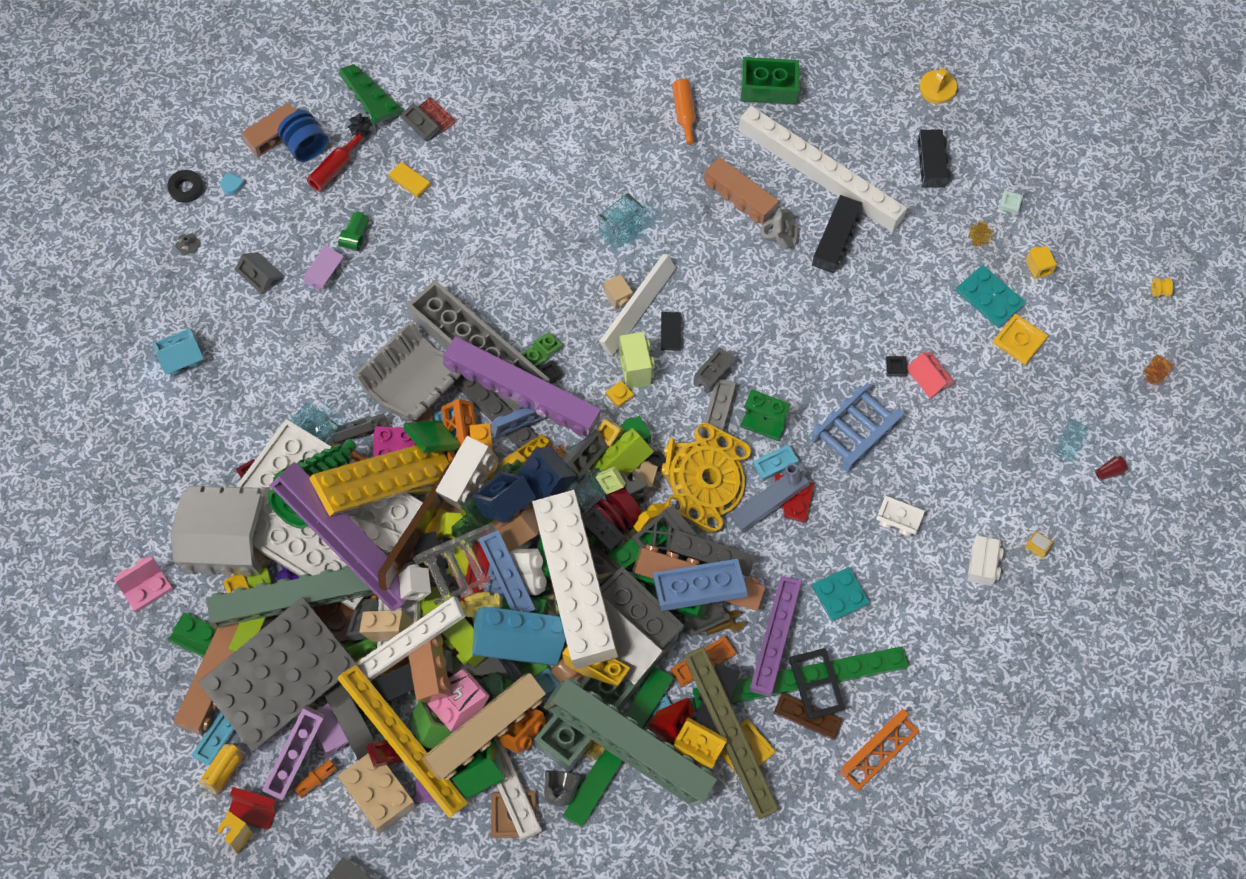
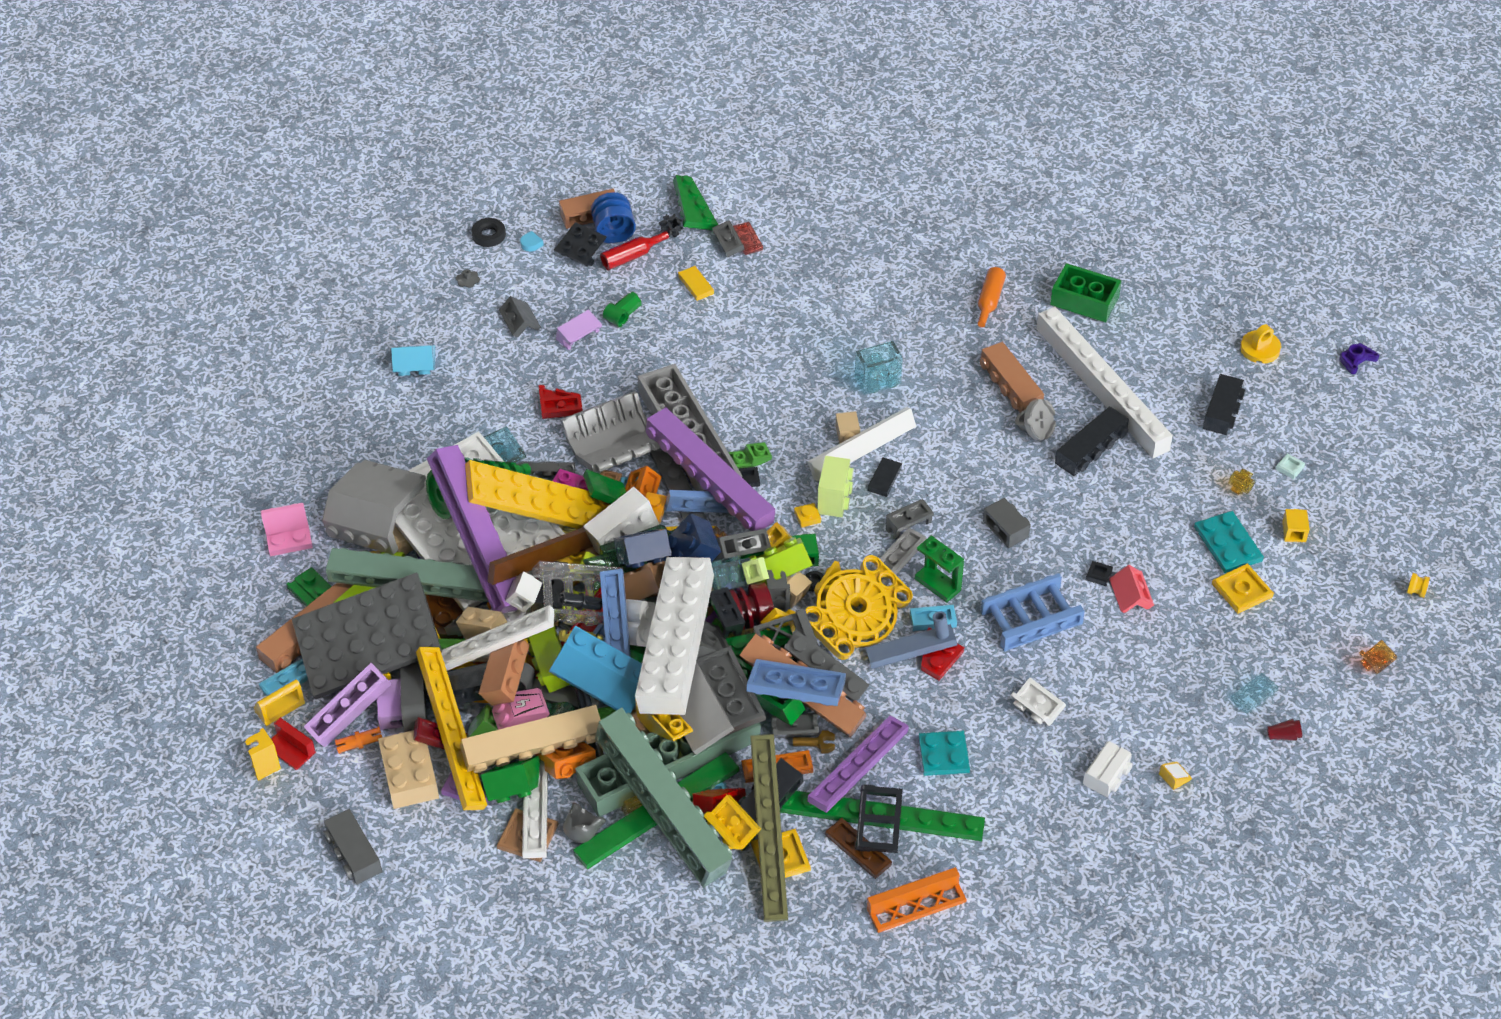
camera: 25 degrees right, 15 degrees down
(283, 173) = (580, 244): none -> black hinge
(339, 353) = (559, 403): none -> red wing
(470, 574) = (580, 601): none -> black axle
(798, 343) = (1006, 522): none -> dark grey brick
(1020, 70) = (1355, 355): none -> dark purple piece

